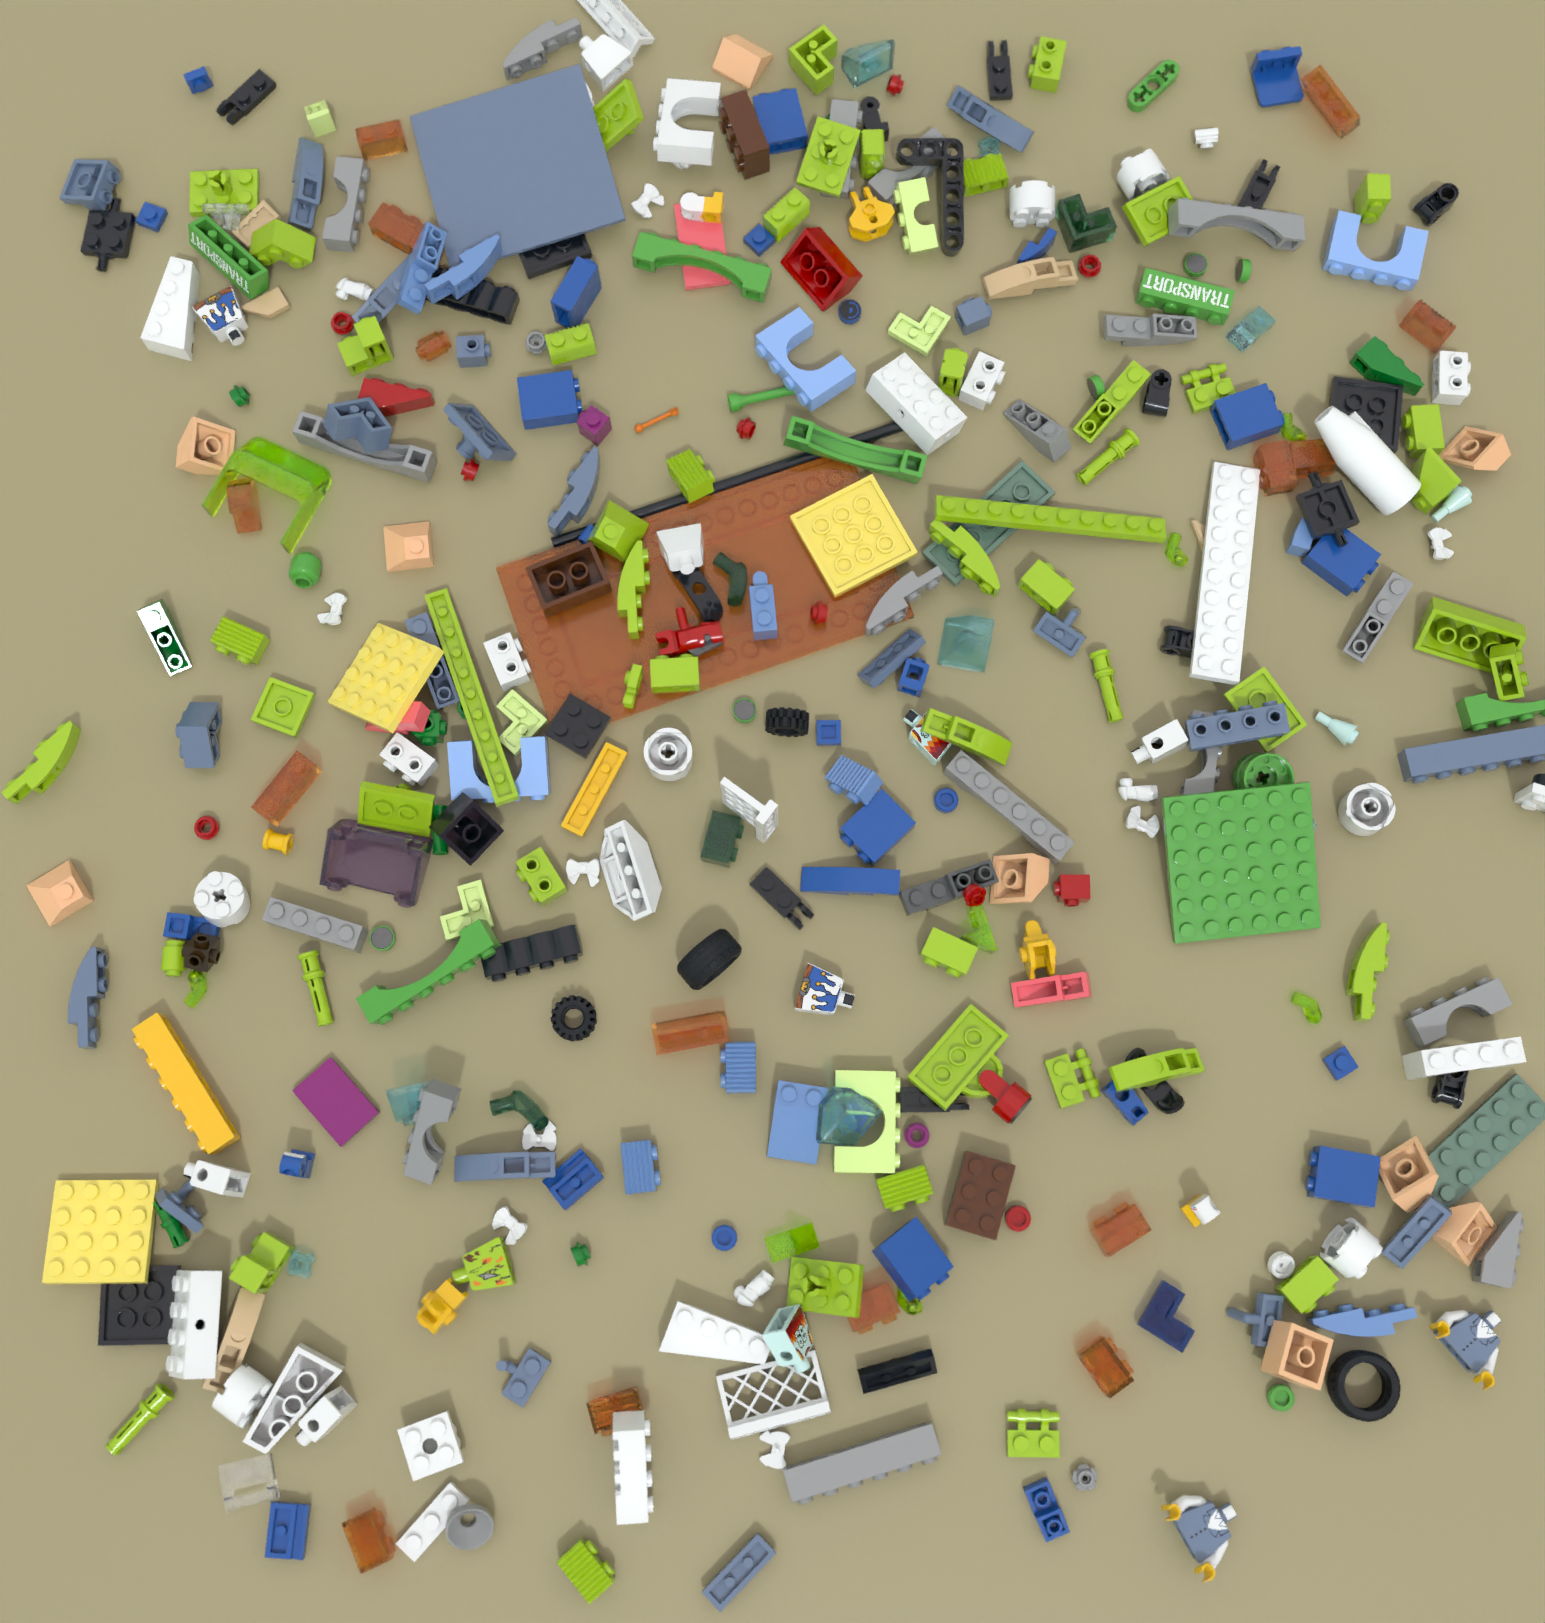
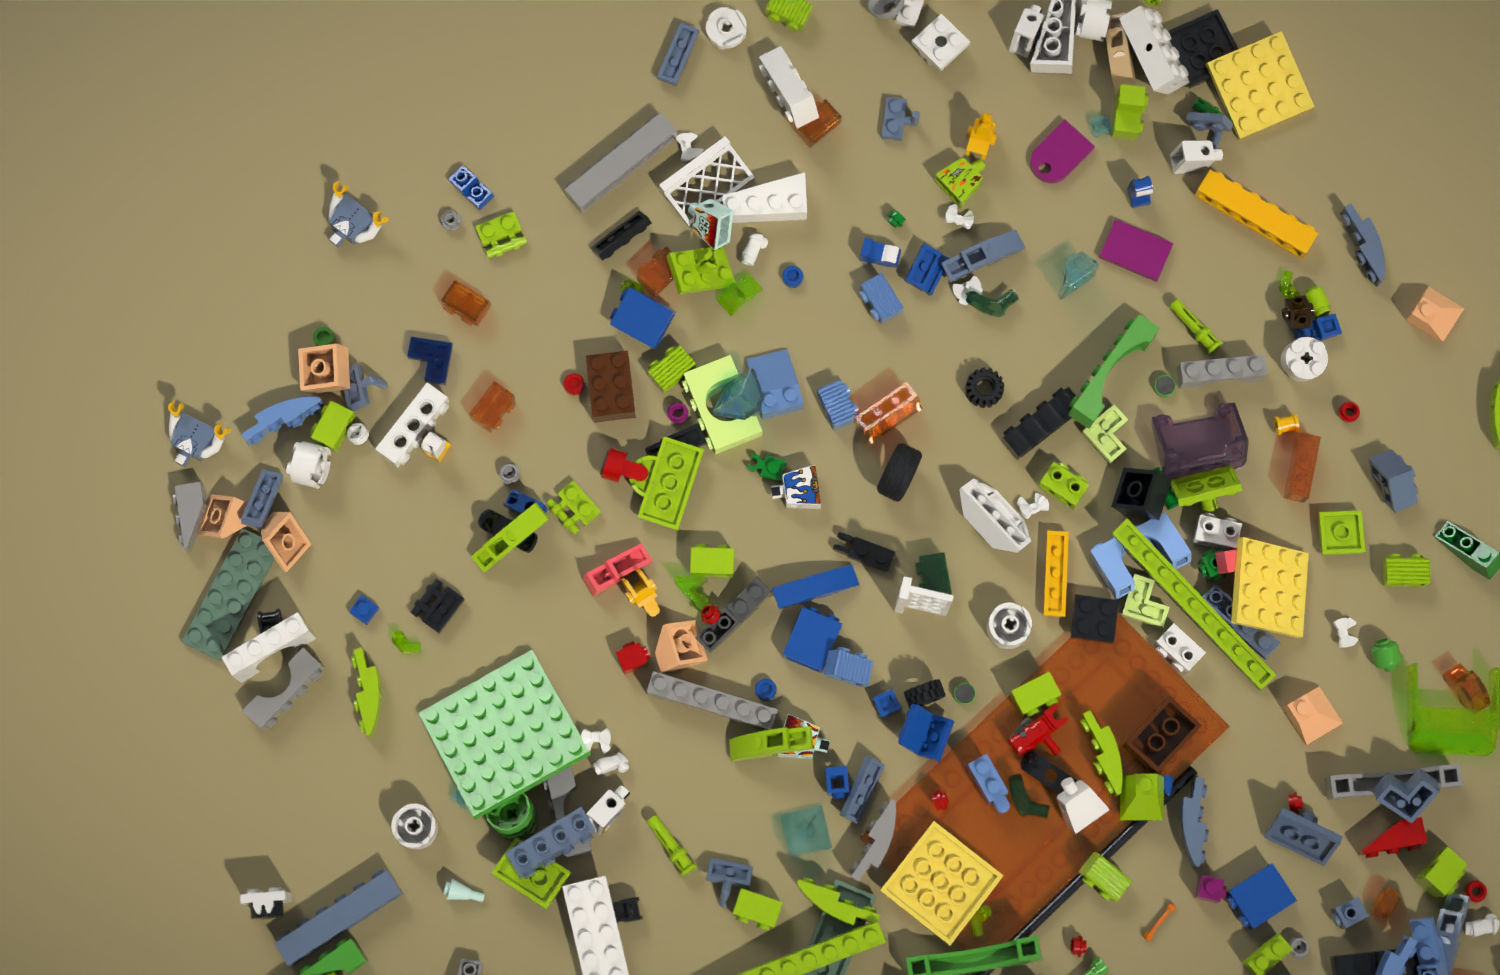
camera: 155 degrees right, 0 degrees up
(360, 1252) = (1060, 152): none -> magenta tile
(425, 1156) = (1054, 268): light grey arch -> none
(616, 1220) = (879, 253): none -> blue leg
(633, 680) = (1066, 673): lime plate -> none
(659, 1593) = (729, 17): none -> white plate
(803, 683) = (925, 733): none -> blue bracket
(835, 486) = (978, 918): none -> clear neon green arm
(841, 1031) = (770, 469): none -> green plate
(1134, 1148) = (503, 473): none -> light grey plate
(1252, 1232) = (426, 397): none -> white brick
(1255, 1026) = (443, 608): none -> black plate
(1343, 1176) = (332, 519): blue brick -> none
(1390, 1385) = (249, 355): black tyre -> none

